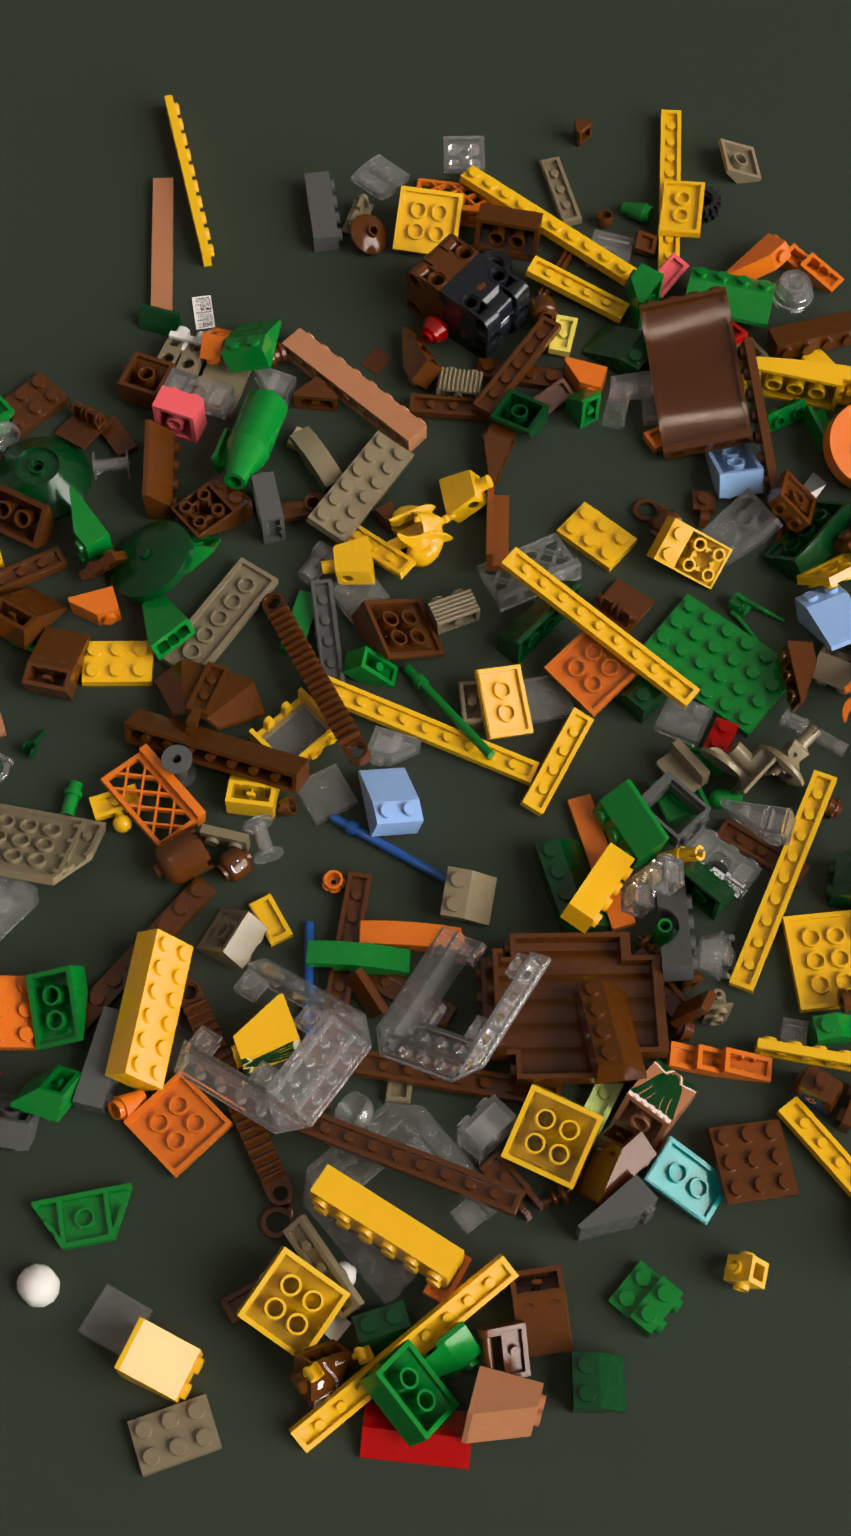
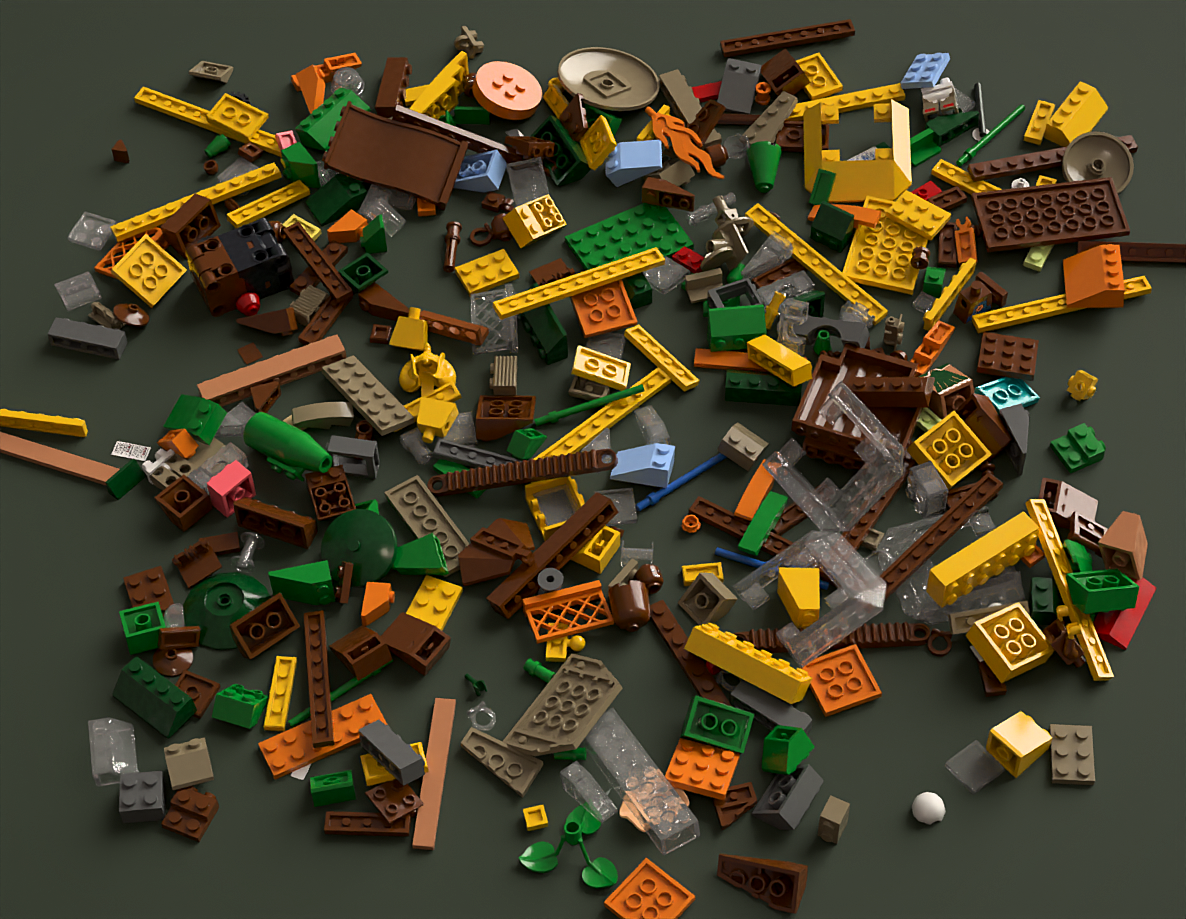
camera: 65 degrees left, 10 degrees down
(85, 1216) = (888, 762): green wing -> none
(125, 1104) = (813, 706): orange cone -> none
(366, 993) = (792, 527): reddish brown tile -> none
(383, 514) = (401, 389): reddish brown slope -> none
(449, 790) = (651, 426): none -> clear slope
(457, 465) = (380, 334): none -> reddish brown tile
(555, 394) = (351, 249): reddish brown tile -> none
(560, 191) = (164, 186): dark tan tile -> none
(597, 1383) = (1124, 496): dark green slope -> none
(622, 483) = (452, 239): none -> reddish brown pin
(693, 1008) = (893, 338): reddish brown tile -> none
(742, 605) = (590, 209): green plant -> none

